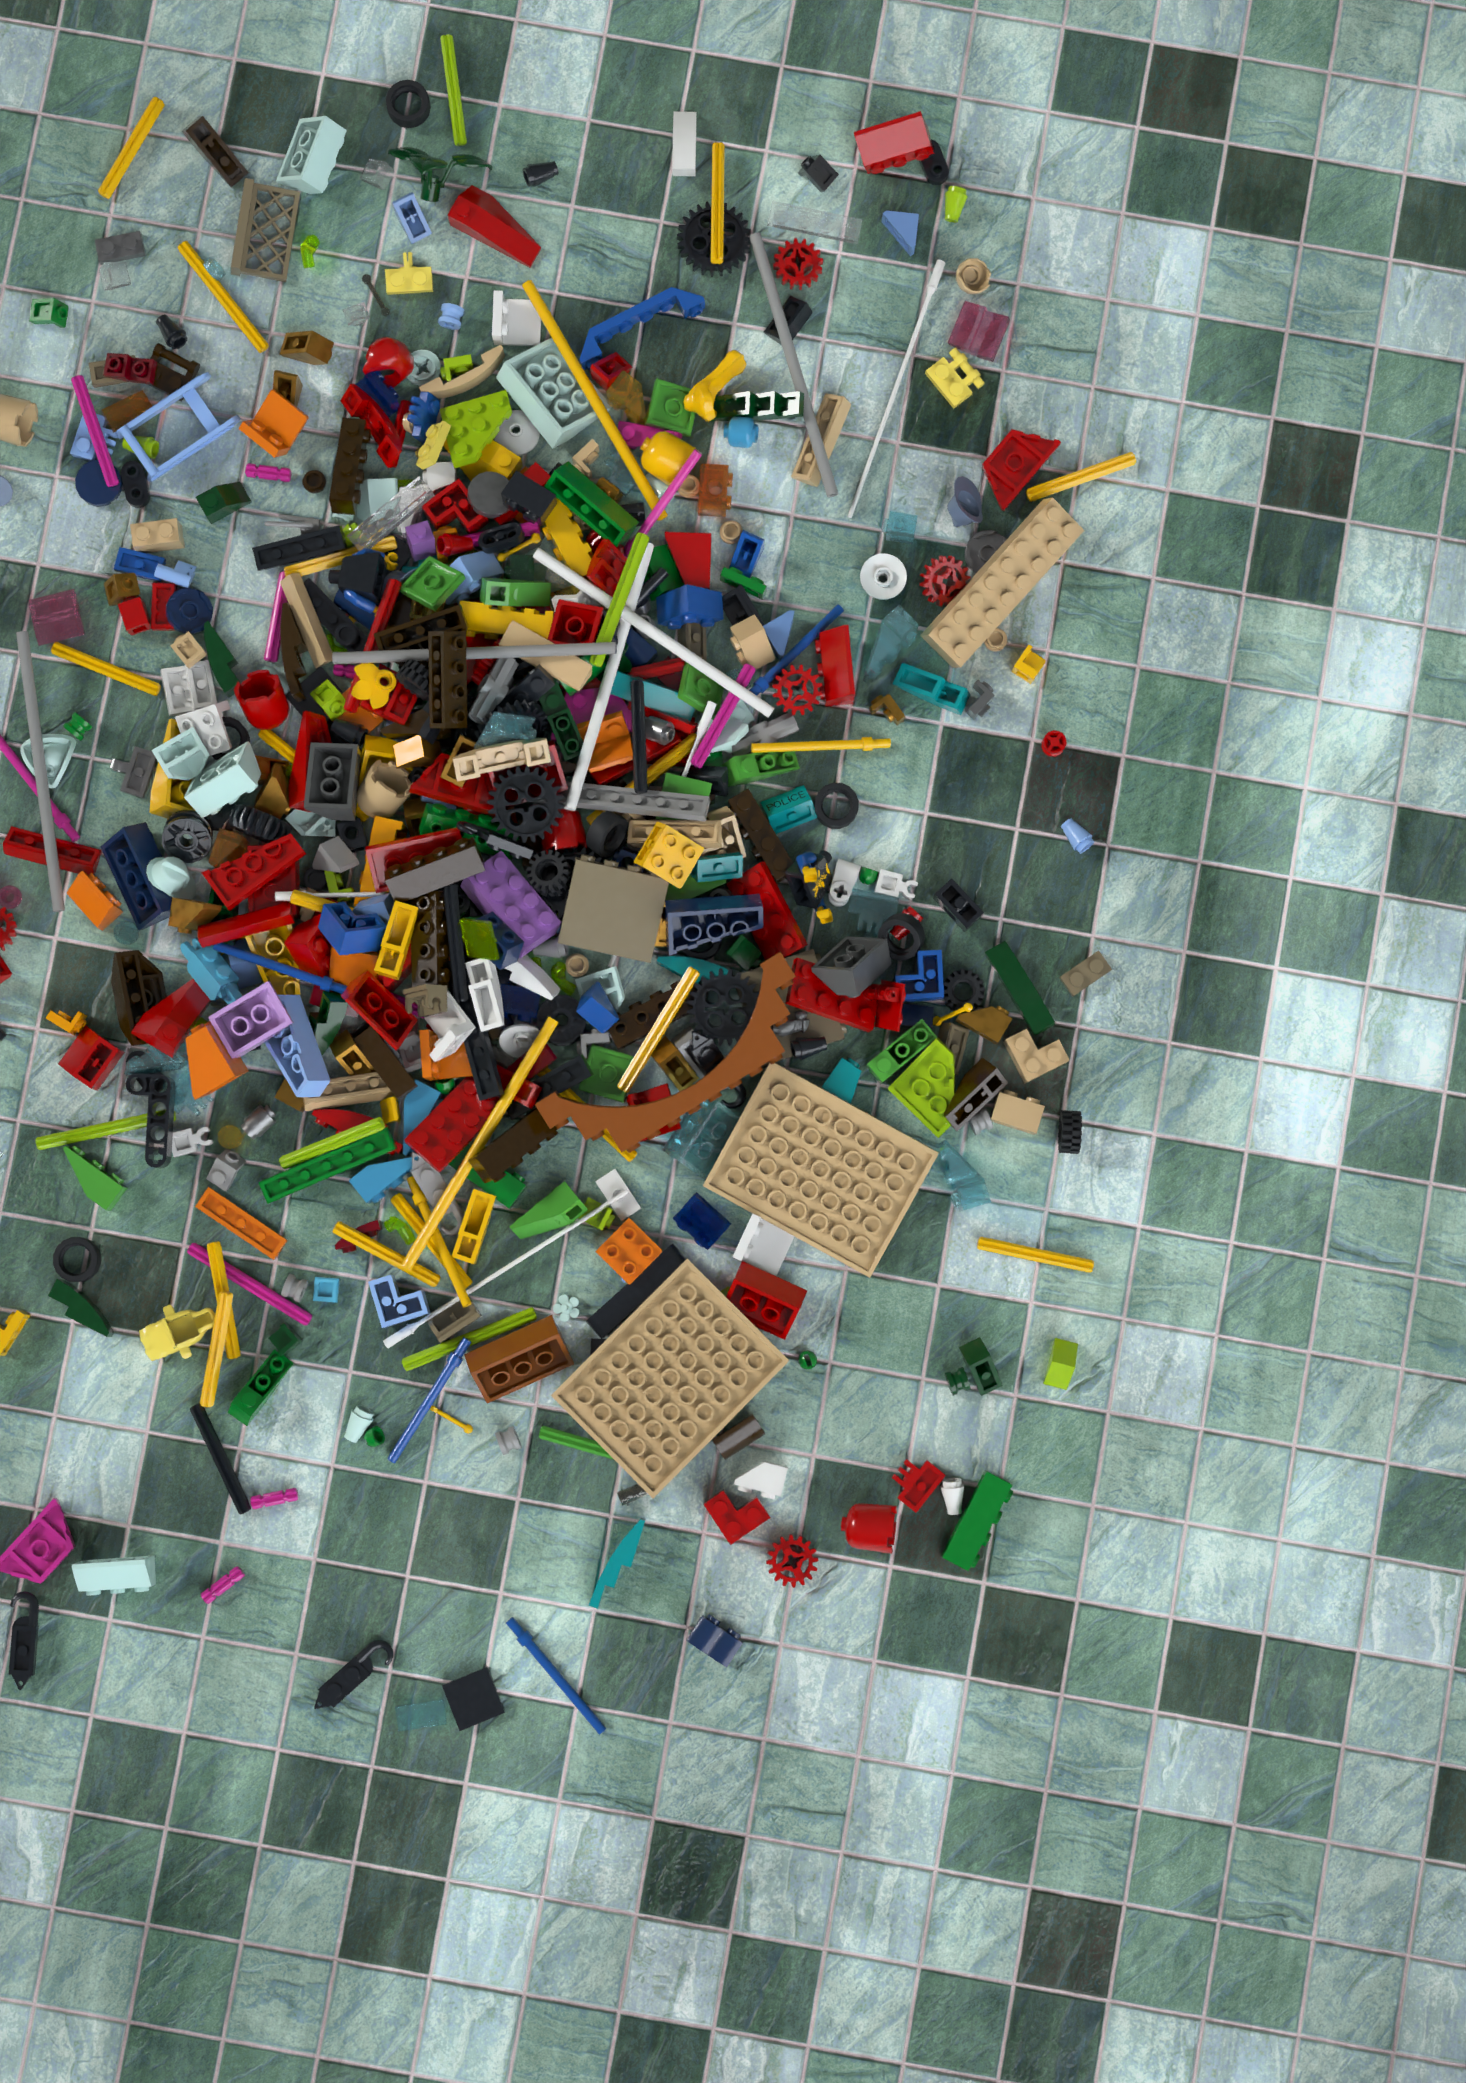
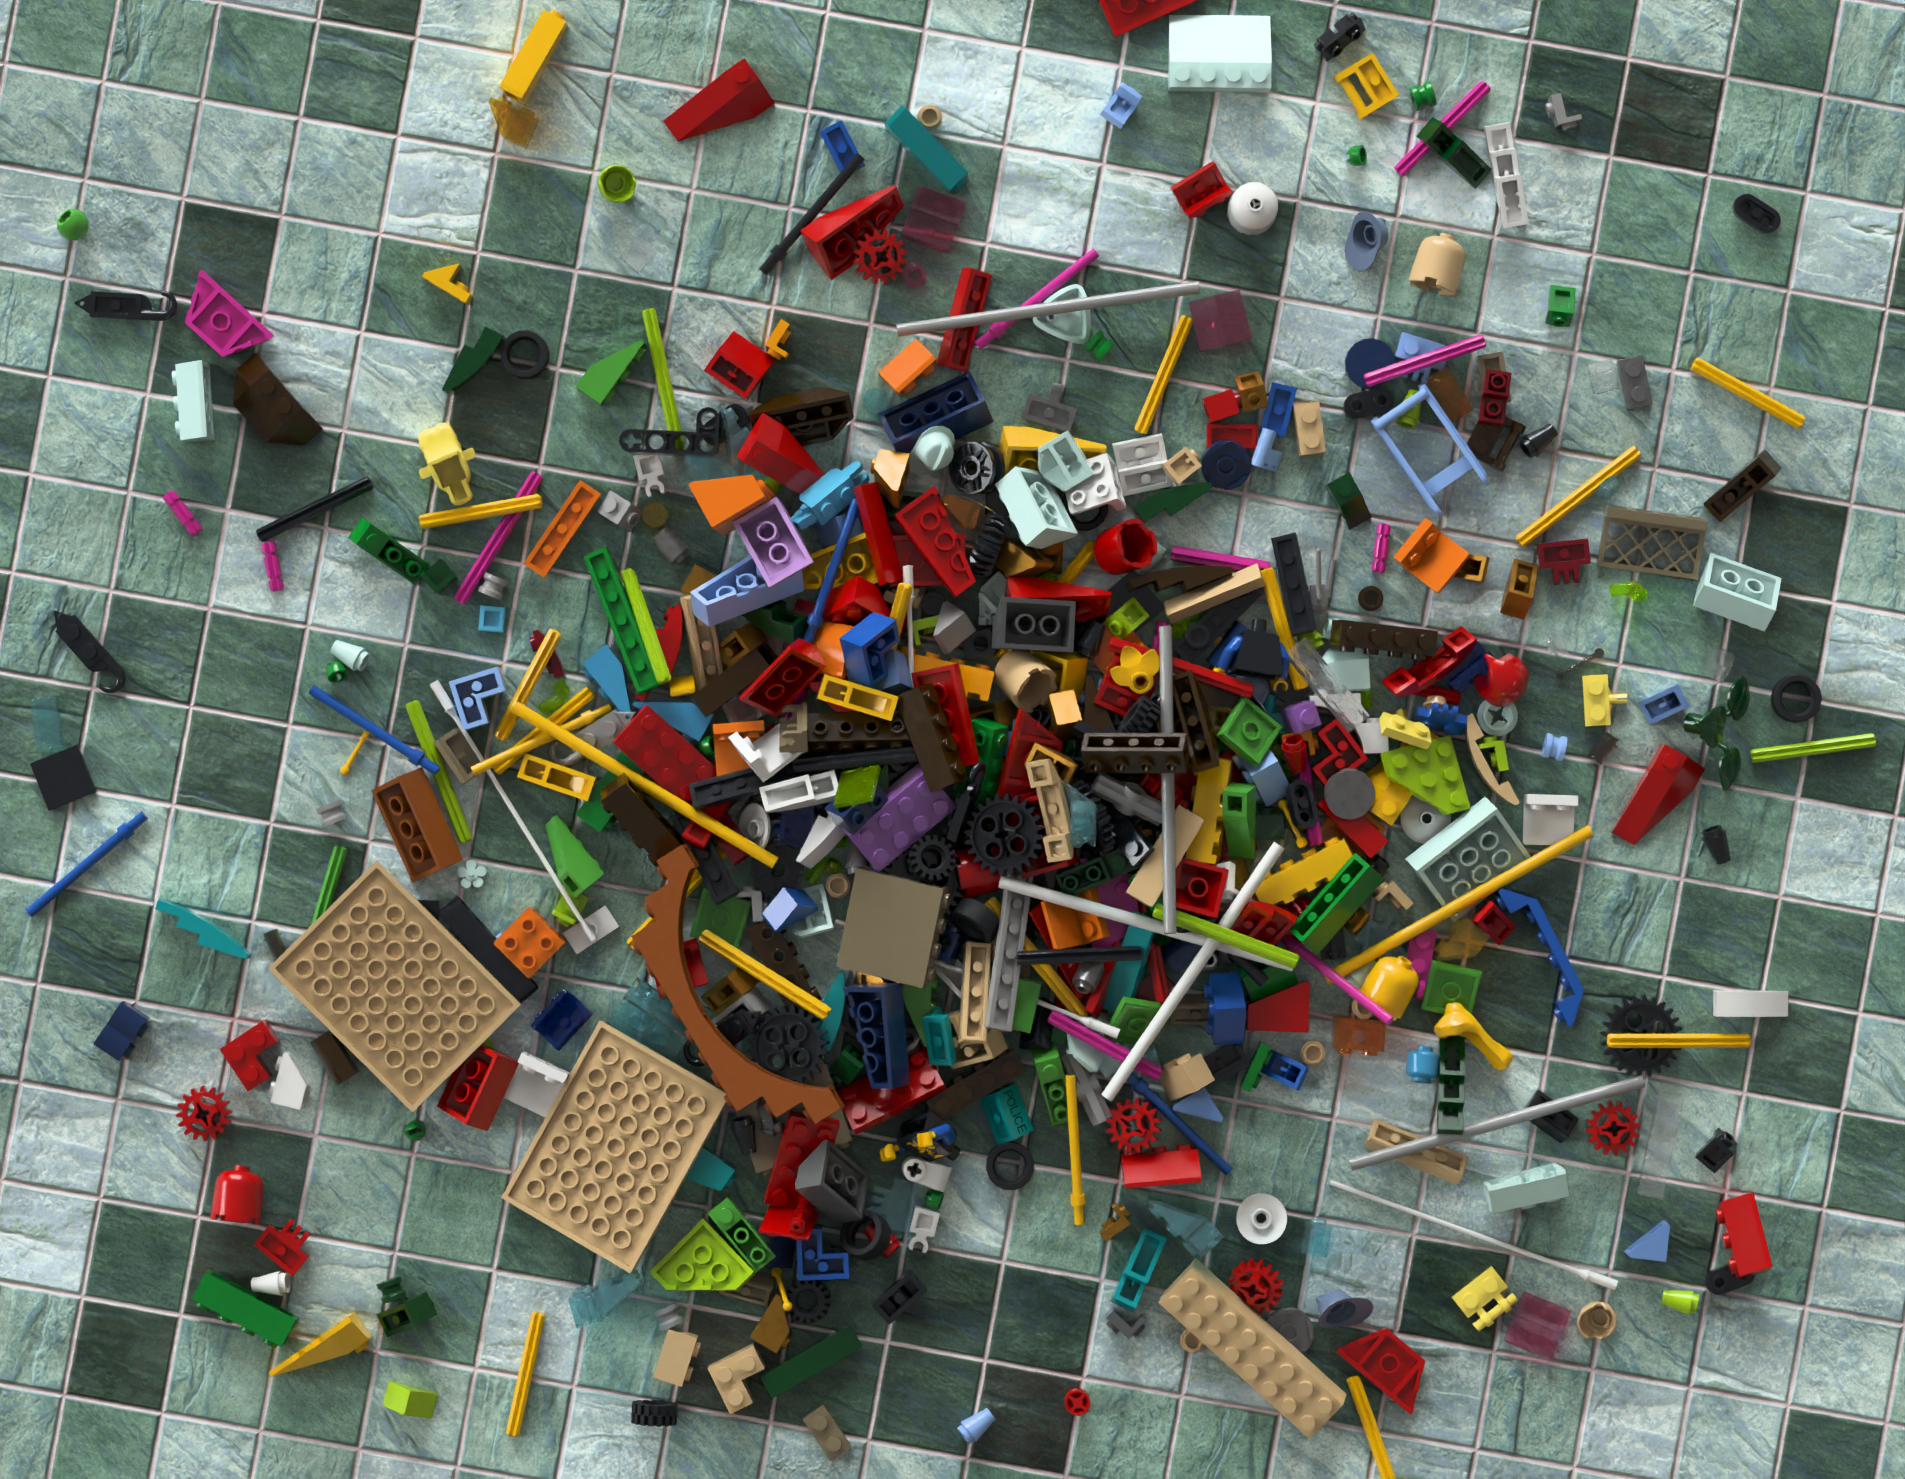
camera: 90 degrees right, 5 degrees up
(121, 1499) = (271, 405): none -> dark brown wedge
(216, 1349) = (428, 505): yellow axle -> none
(279, 308) = (1564, 558): none -> dark red hinge
(452, 273) = (1603, 747): none -> clear smoke pin
(528, 498) = (1341, 836): black brick -> none
(669, 854) = (949, 987): yellow bracket -> none
(852, 336) = (1526, 1188): none -> light aqua wedge
(974, 1092) = (698, 1312): dark brown slope -> none
(1006, 1431) = (337, 1341): none -> yellow wedge
(1028, 665) = (1164, 1376): yellow panel -> none

